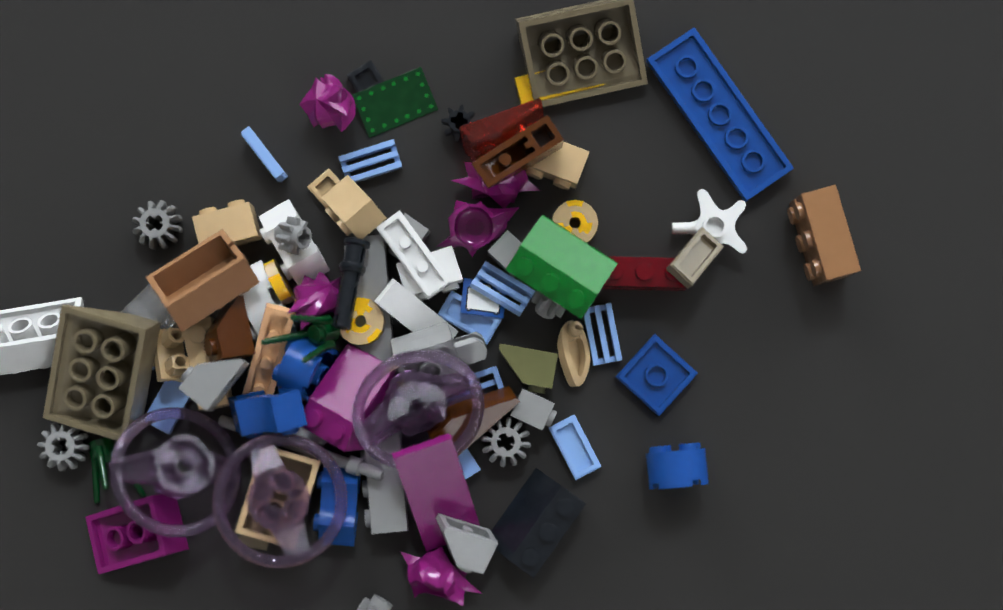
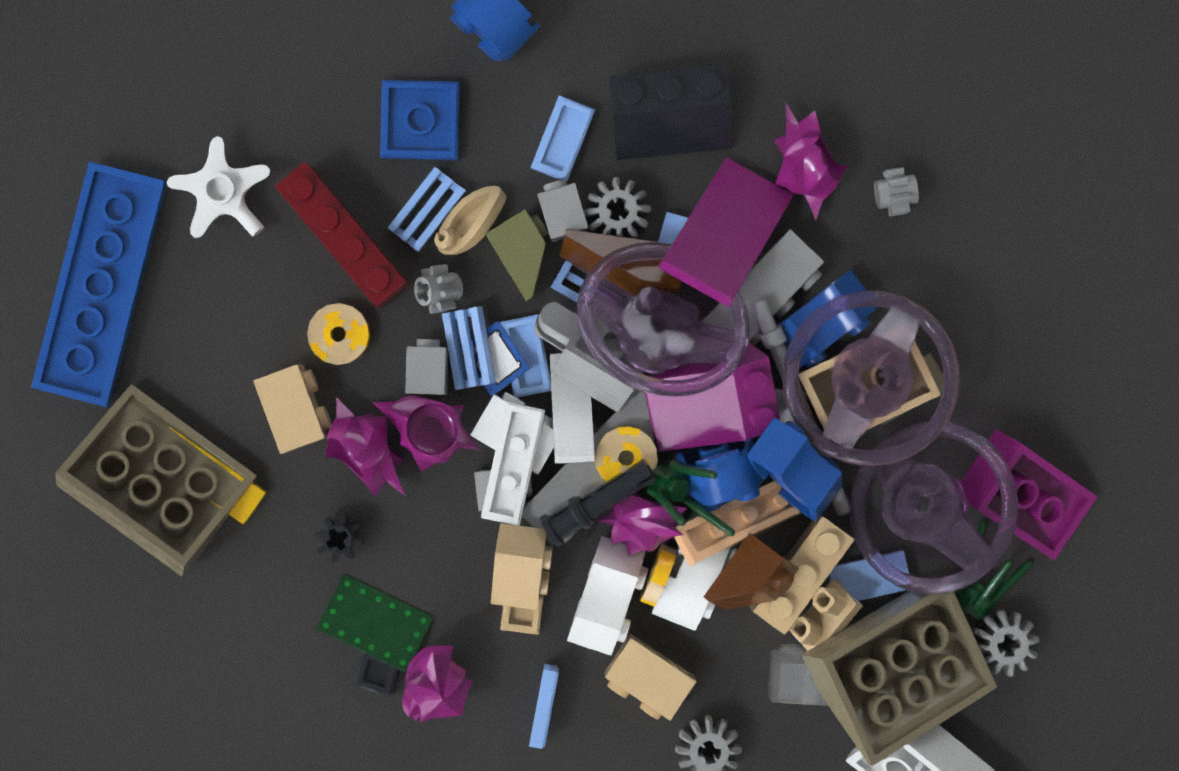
camera: 130 degrees left, 5 degrees up
(202, 280) = (723, 649): medium nougat piece -> none
(211, 381) = (816, 550): light grey slope -> none
(293, 235) = (600, 600): light grey gear -> none
(368, 151) = (428, 576): light blue tile -> none
(467, 543) = (750, 159): light grey slope -> none
(494, 130) = (312, 486): clear red slope -> none
(519, 152) = (317, 446): reddish brown slope -> none
(561, 266) = (395, 303): slope -> none
(694, 257) = (268, 180): tile -> none
(823, 235) = (133, 70): medium nougat piece -> none

